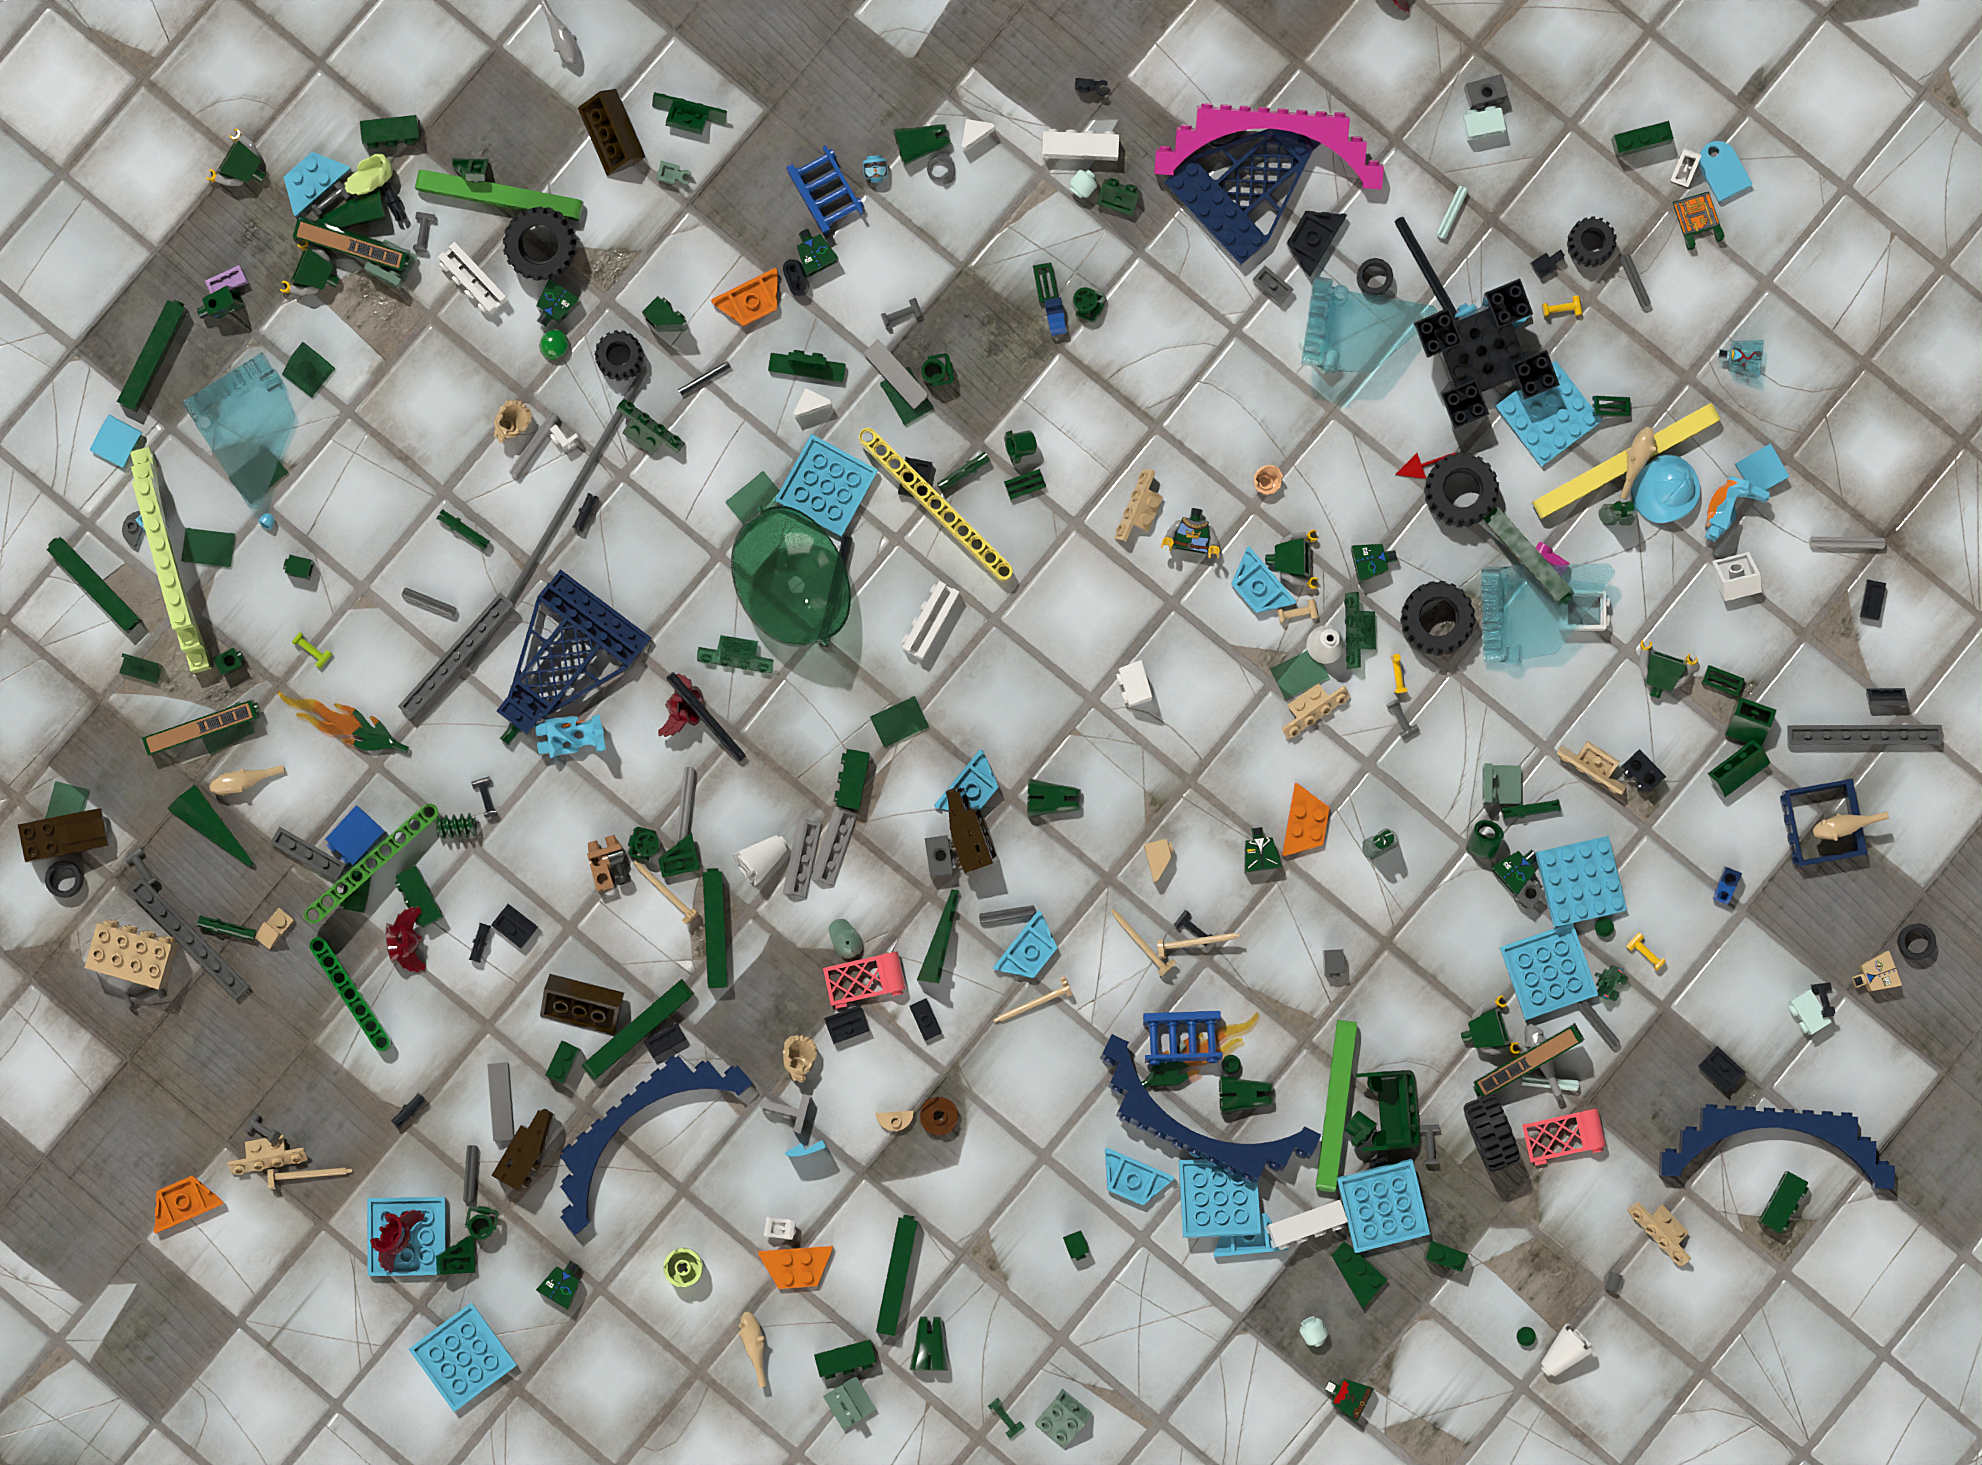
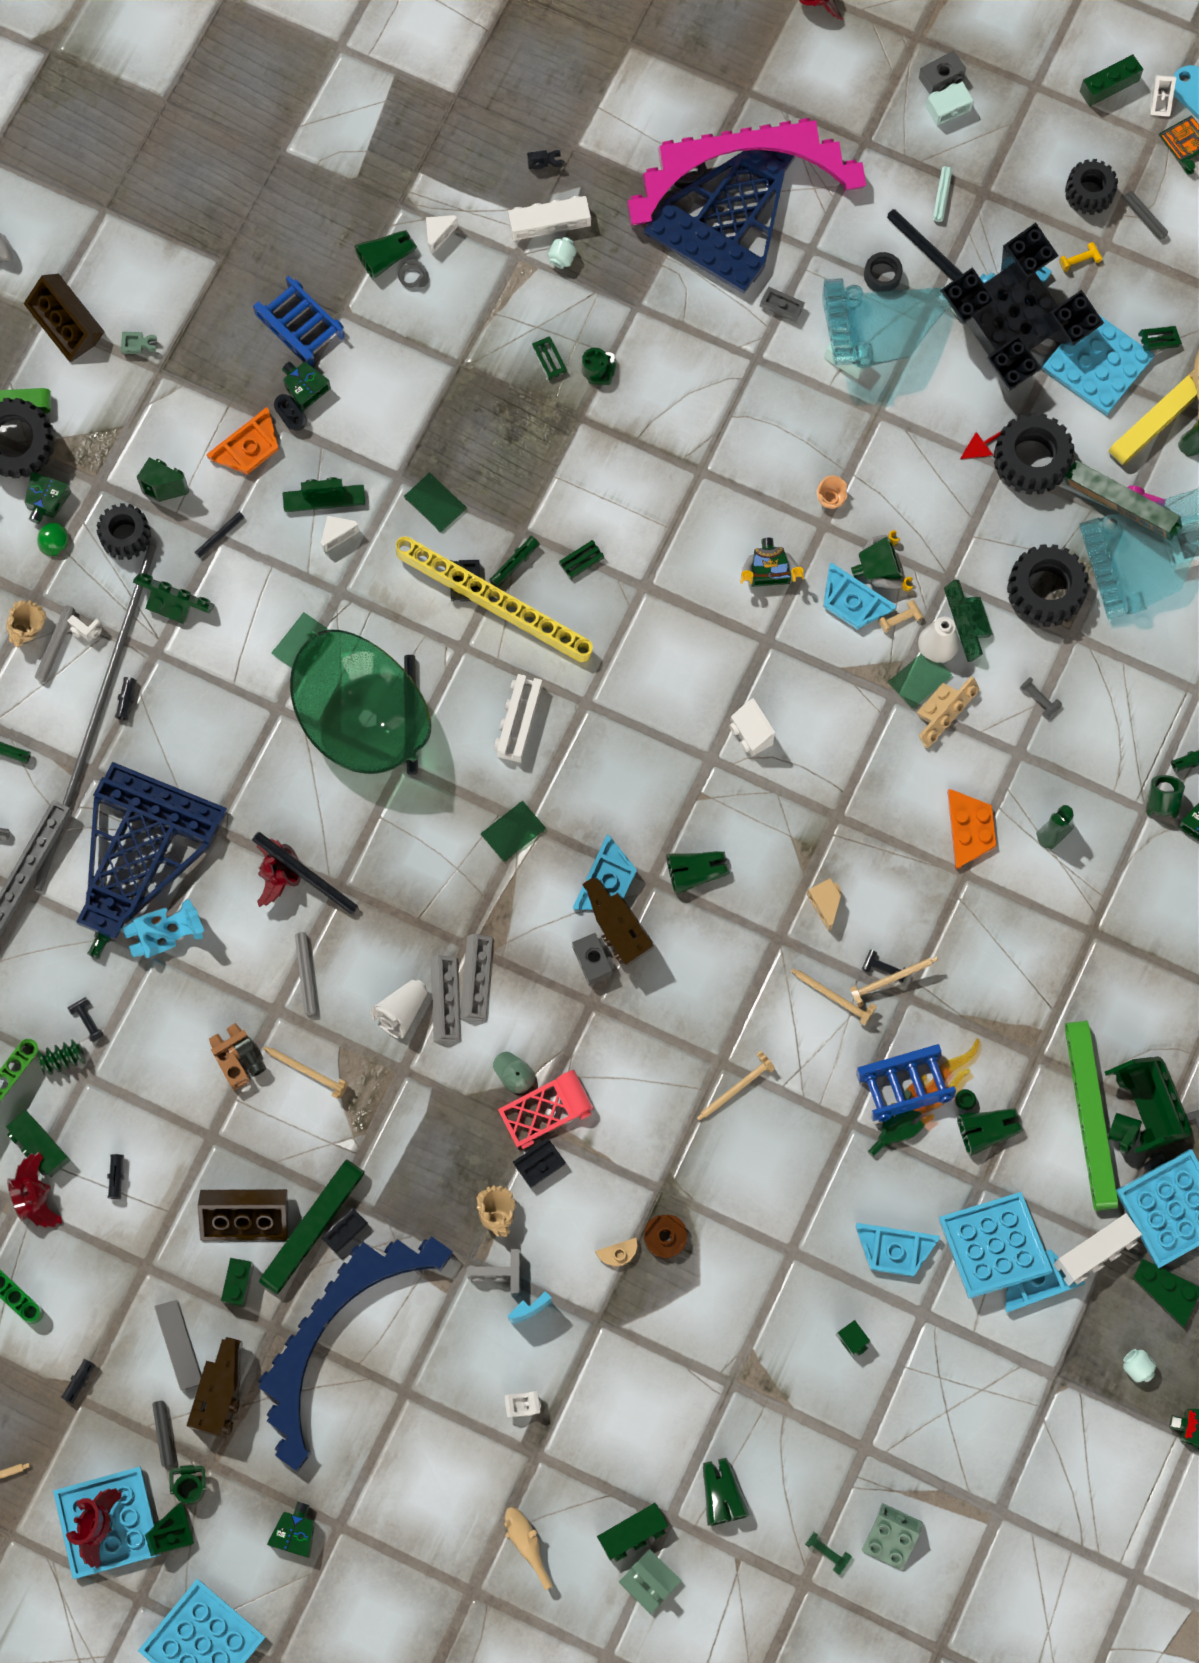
camera: 15 degrees left, 10 degrees down
(514, 926) = (149, 1149): black plate -> none
(645, 843) = (273, 1024): dark green piece -> none
(671, 1267) = (414, 1480): yellowish green brick -> none
(680, 858) = (313, 1031): dark green wing -> none
(687, 114) = (139, 281): dark green bracket -> none
(715, 928) = (370, 1096): dark green brick -> none
(736, 653) = (321, 803): clear green bracket -> none
(796, 1266) = (551, 1443): orange wing -> none
(826, 485) = (376, 606): medium azure plate -> none
(852, 779) = (478, 901): dark green brick -> none
(875, 168) = (345, 288): head -> none
(896, 374) = (419, 481): light grey slope -> none
(897, 1275) = (666, 1423): dark green brick -> none
(914, 308) = (419, 415): dark grey piece -> none
(925, 1019) = (623, 1136): black plate -> none
(934, 371) = (457, 467): dark green piece -> none
(934, 960) = (617, 1066): dark green wedge -> none
(1007, 914) = (681, 1002): dark grey axle -> none
(1020, 445) = (565, 519): dark green piece -> none
(1029, 949) = (715, 1033): medium azure wing -> none
(1055, 316) = (568, 386): leg -> none
(1118, 196) = (601, 258): dark green bracket -> none
(1141, 507) = (708, 553): tan bracket -> none
(1235, 1158) = (1001, 1196): dark blue arch -> none
(1260, 853) = (933, 870): dark green torso -> none
(1313, 238) = (810, 250): black wing -> none
(1333, 962) = (1043, 964): dark grey brick -> none
(1371, 560) = (961, 547): dark green torso -> none
(1395, 658) = (1016, 639): yellow piece -> none
(1501, 784) = (1163, 737): sand green bracket -> none
(1545, 265) = (1052, 221): black plate -> none

